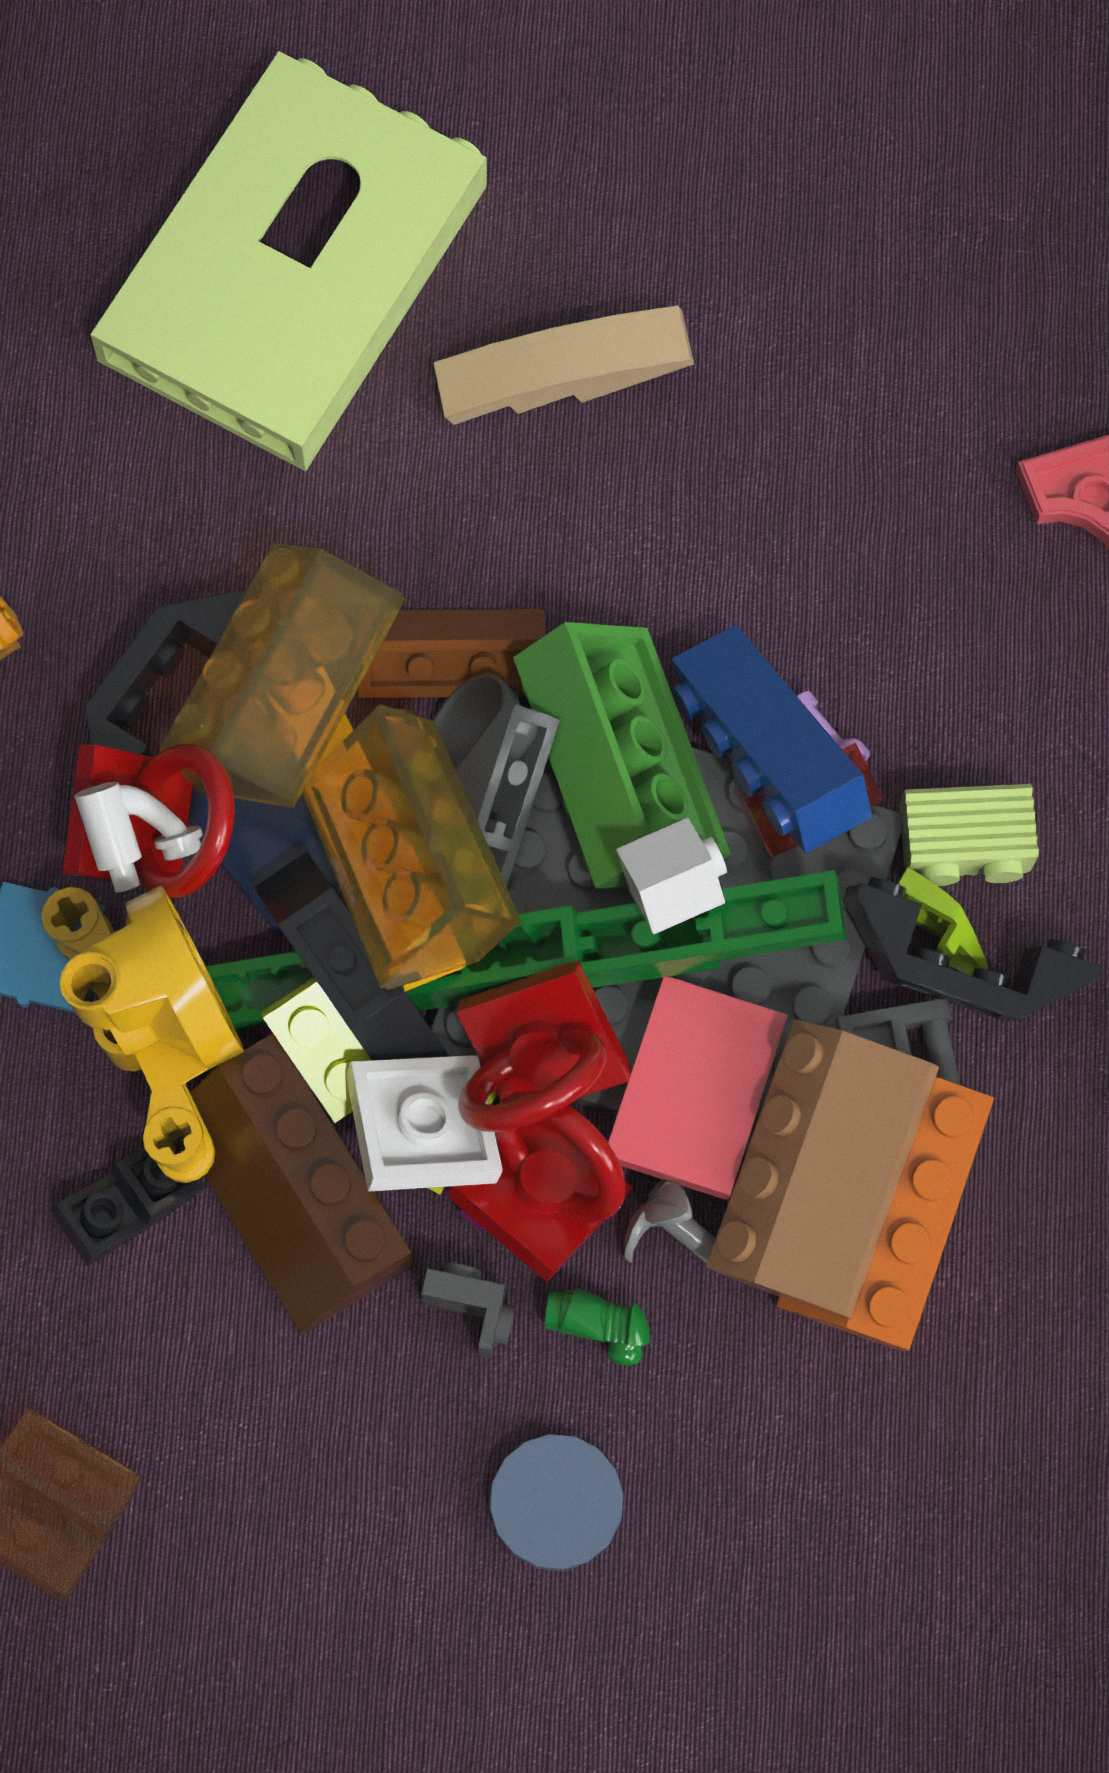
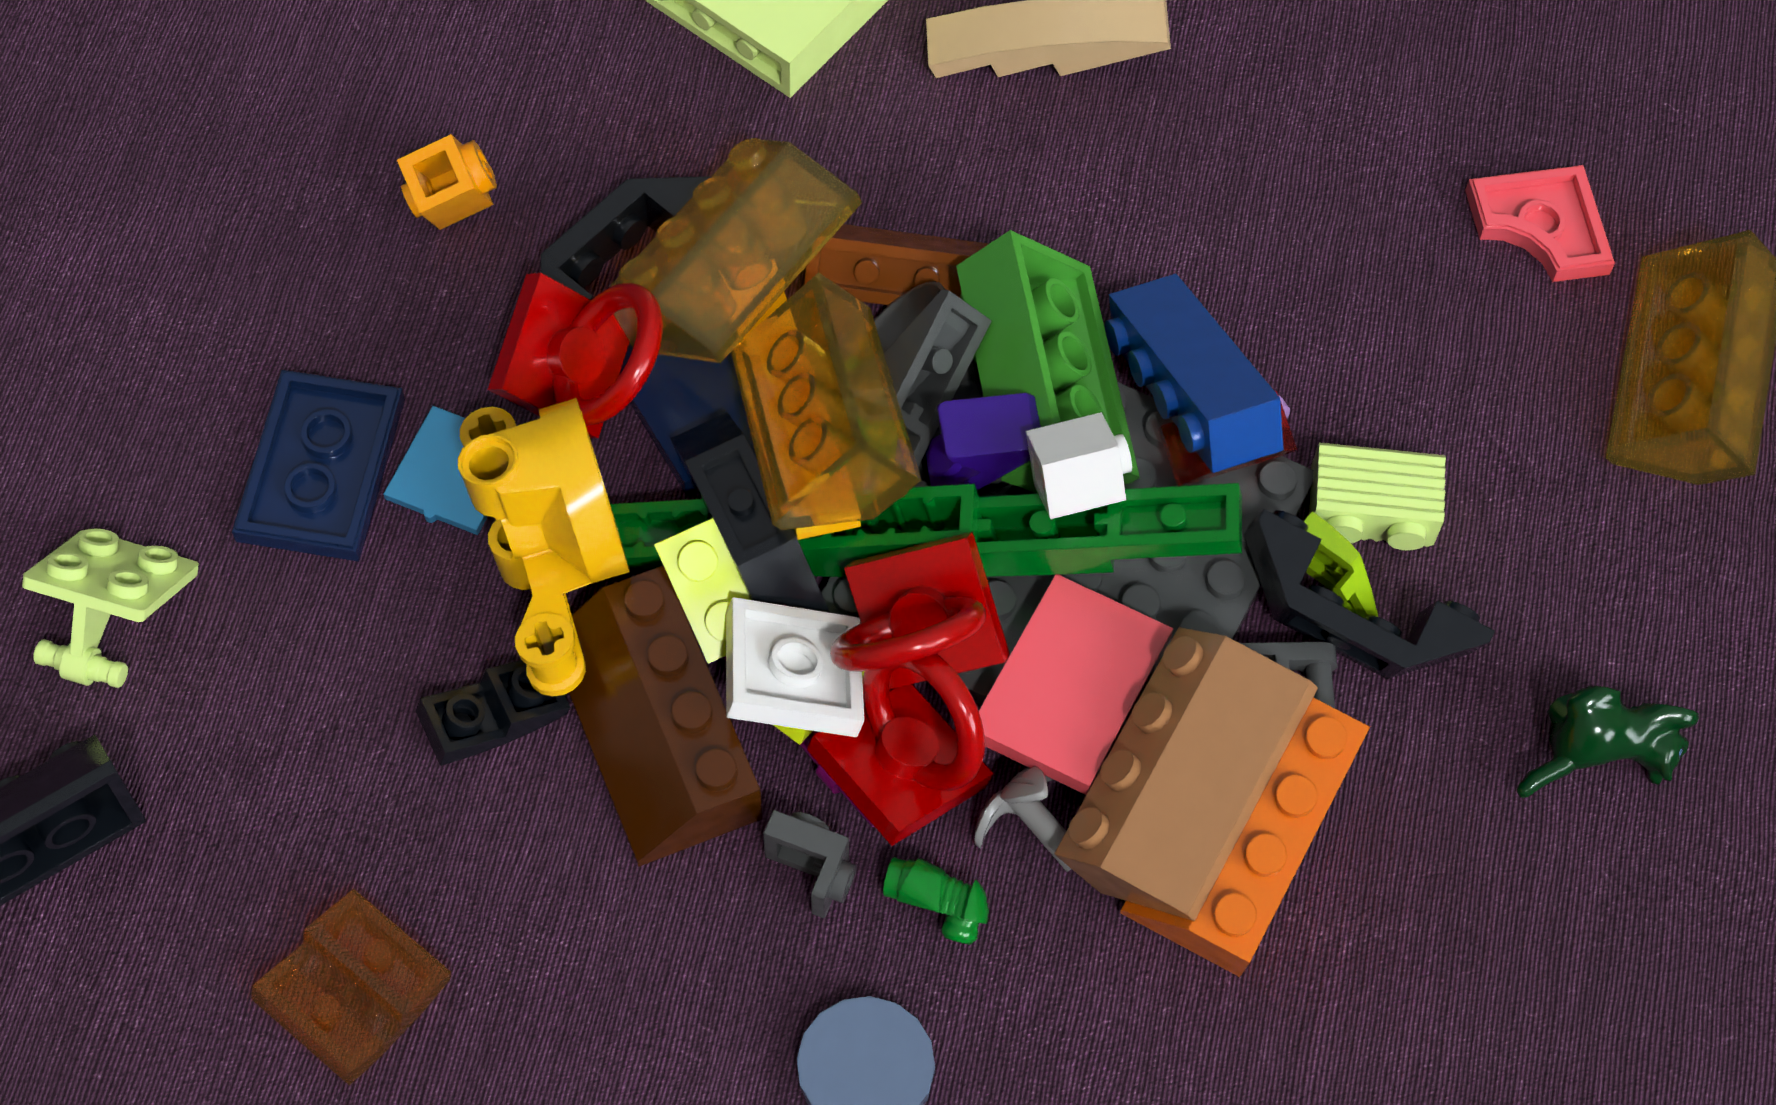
camera: 10 degrees right, 10 degrees down
(111, 834) = (540, 353): white plant -> none
(569, 854) = (981, 439): none -> dark purple slope

